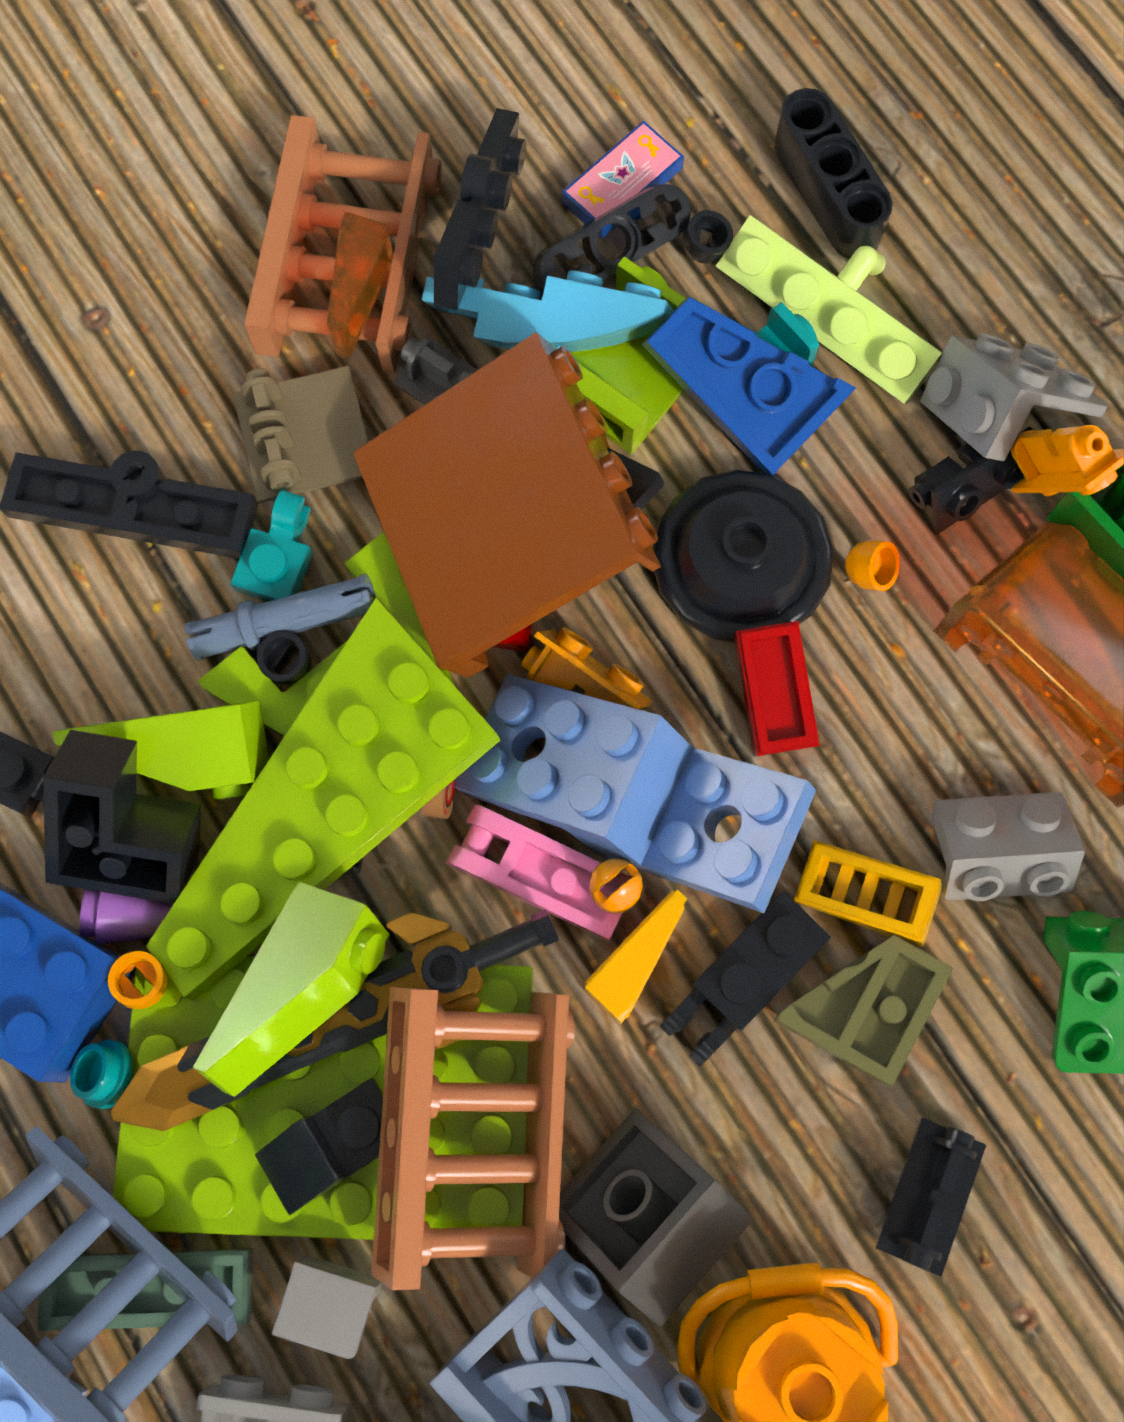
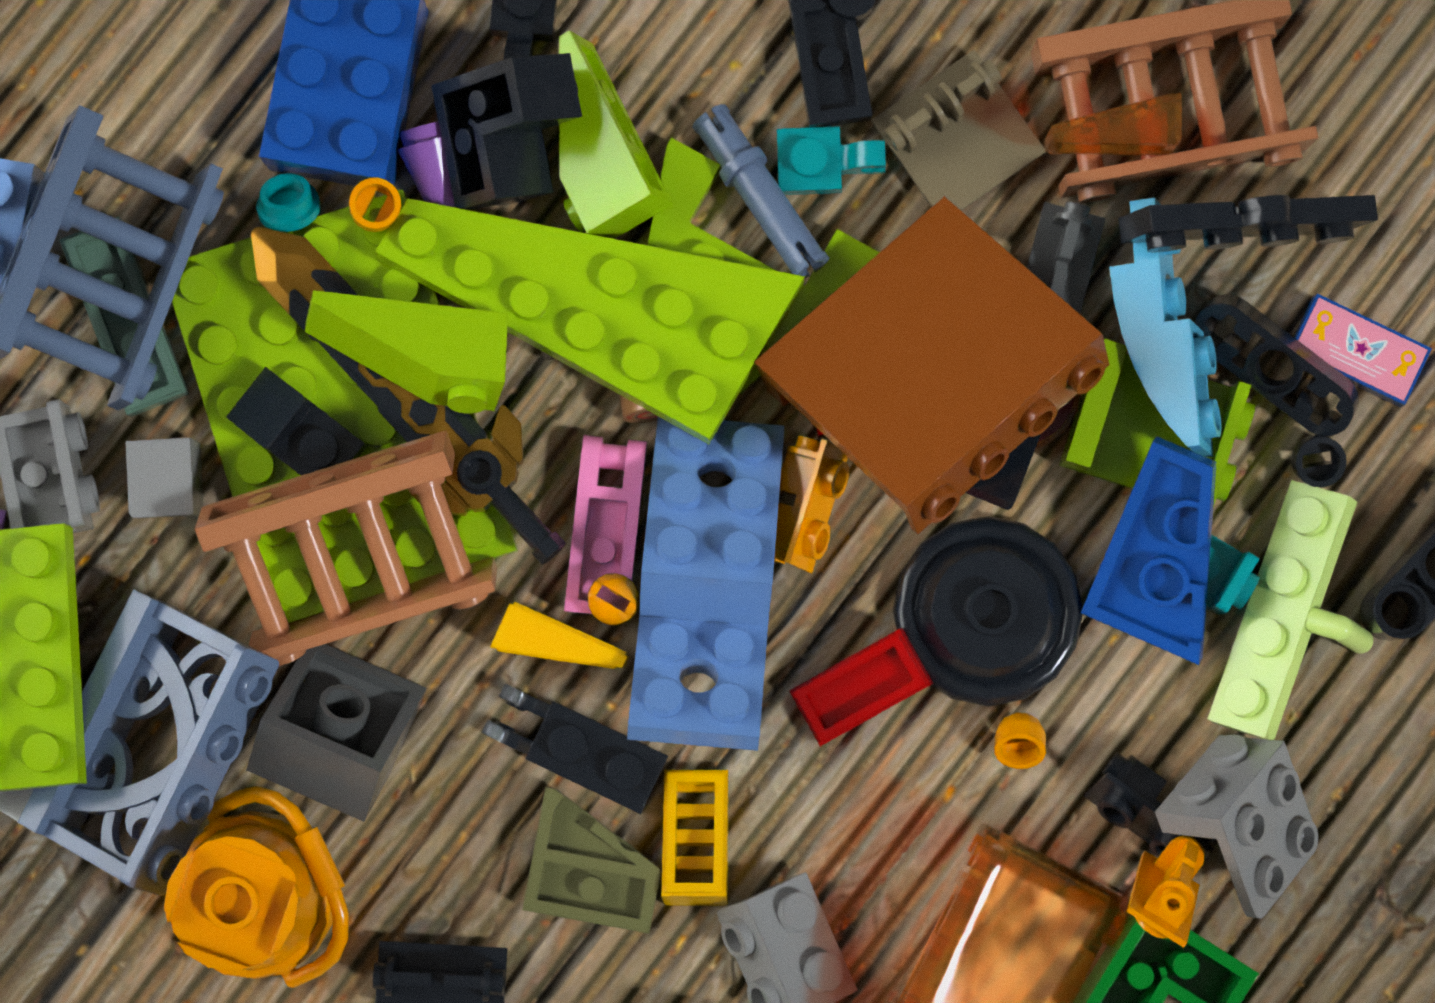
camera: 70 degrees right, 10 degrees up
(277, 651) = (724, 199): black hinge -> none

